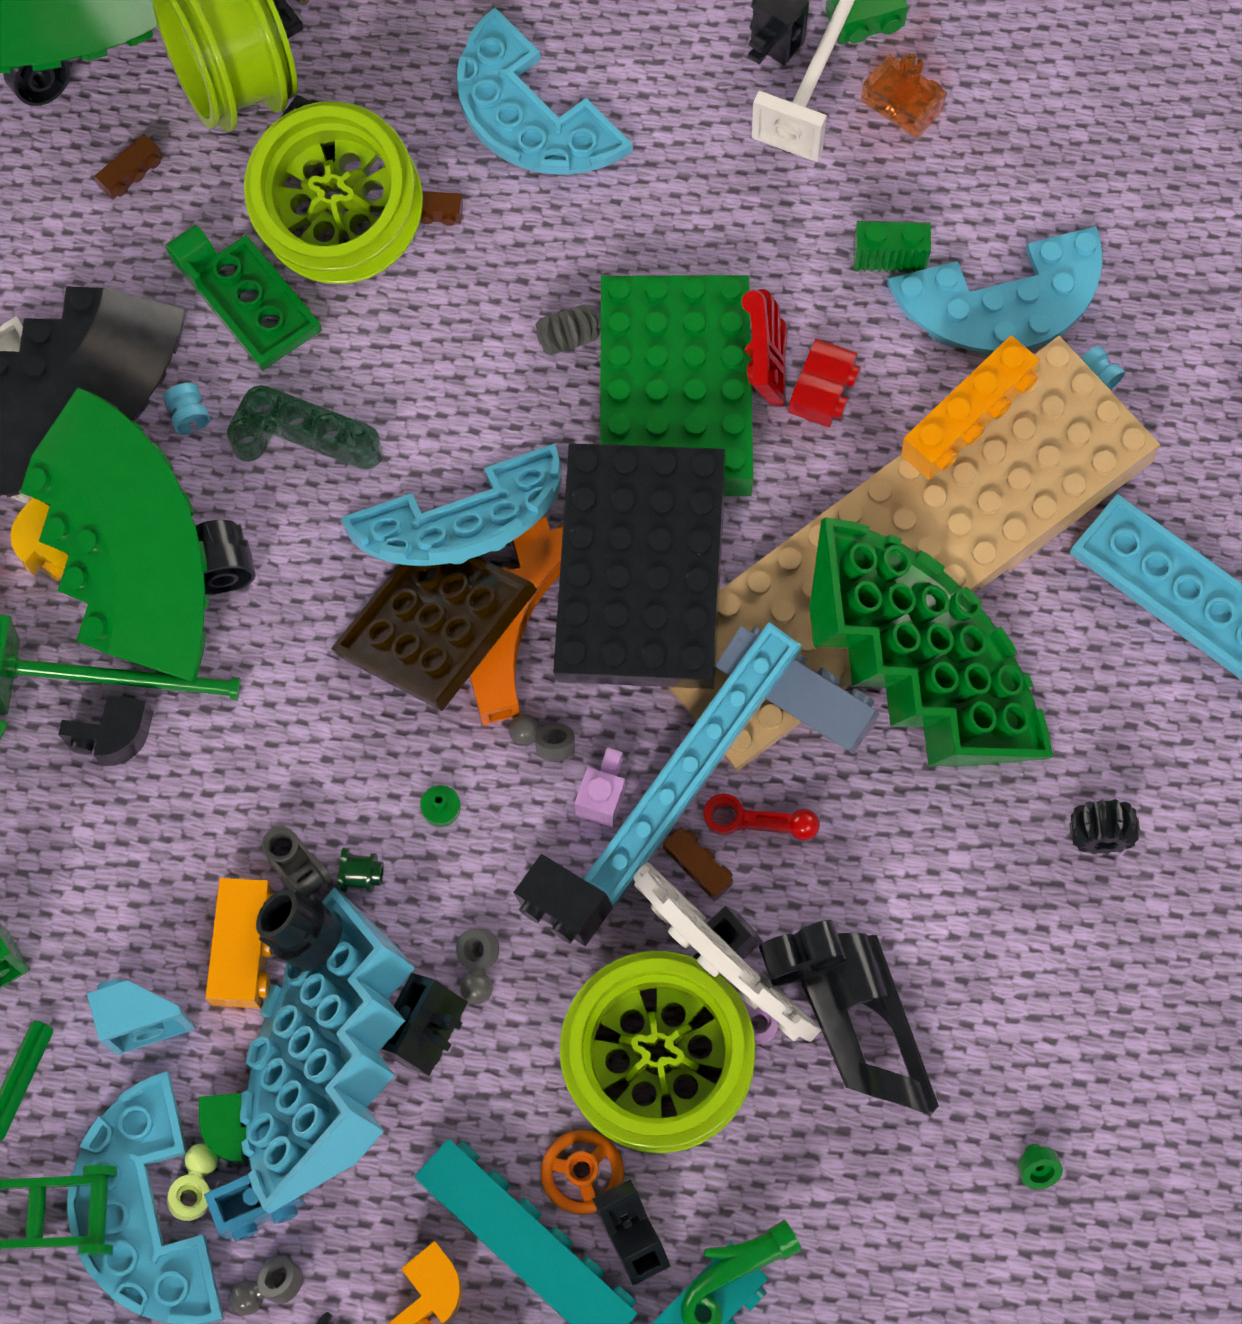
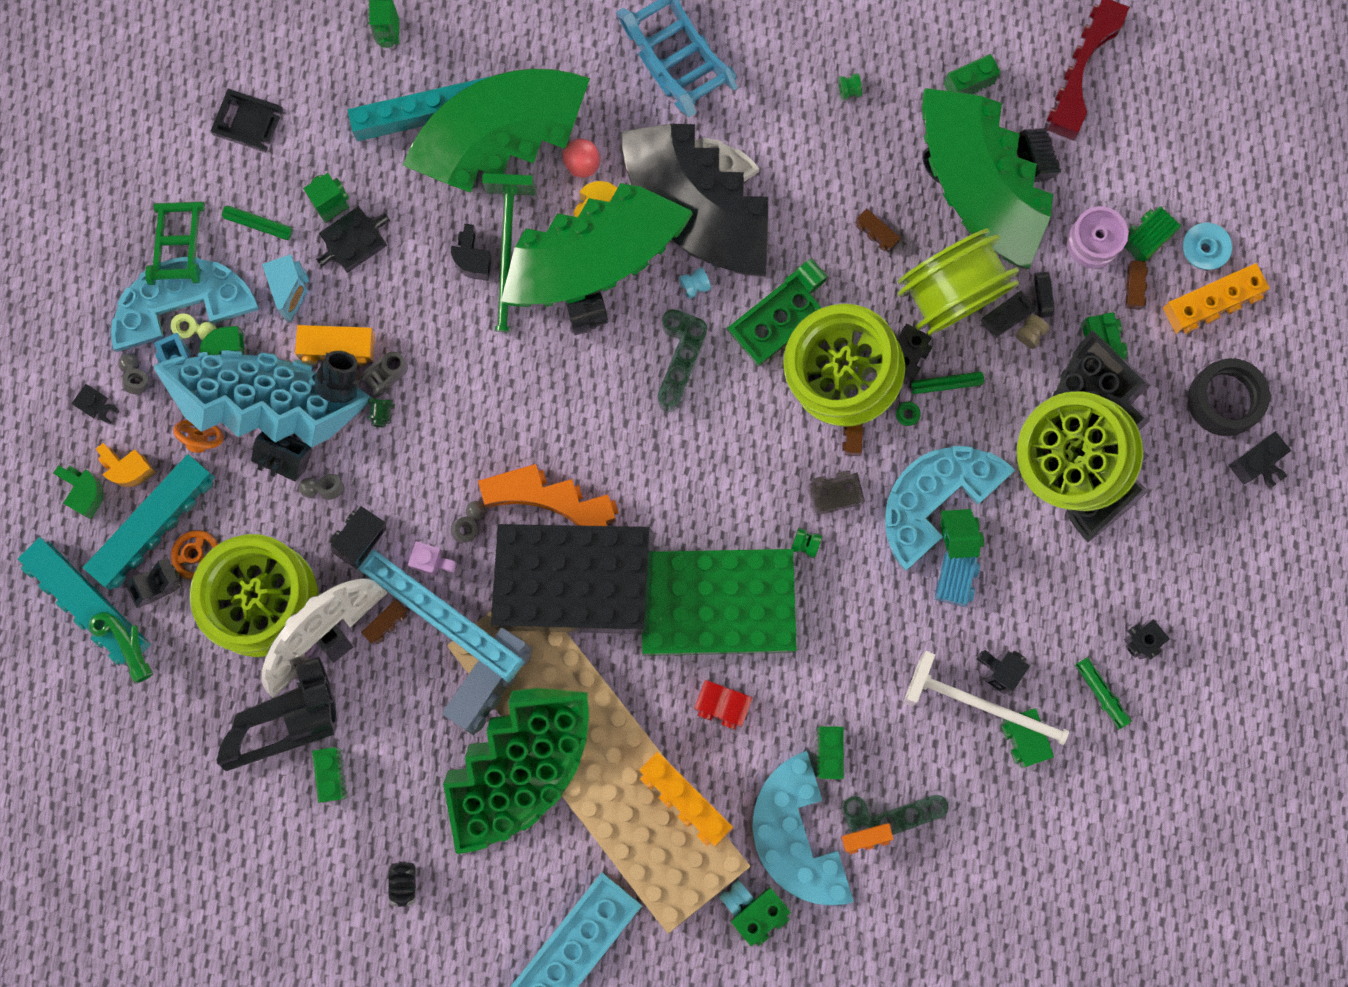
camera: 85 degrees right, 10 degrees up
(63, 921) = (352, 239): none -> black plate
(362, 75) = (947, 382): none -> green axle
(387, 1168) = (197, 440): none -> orange piece
(409, 129) = (911, 407): none -> green plate
(434, 626) = (541, 448): dark brown tile -> none
(443, 813) = (426, 465): green tile -> none
(467, 528) = (606, 467): medium azure plate -> none
(519, 230) = (835, 493): none -> clear smoke brick
(567, 329) = (756, 528): dark grey gear -> none
(584, 68) = (961, 533): none -> green brick
(590, 266) = (800, 542): none -> green wheel
(644, 84) = (956, 580): none -> dark azure brick
(767, 346) = (747, 663): red plate -> none
(801, 824) = (410, 688): red piece -> none
(903, 94) = (955, 764): clear orange brick -> none
(941, 941) = (329, 775): none -> green brick
(975, 168) = (896, 814): none -> clear green beam
(1012, 193) = (867, 838): none -> orange piece
(1039, 1167) = (189, 833): green tile -> none
(1125, 339) = (761, 917): none -> green brick

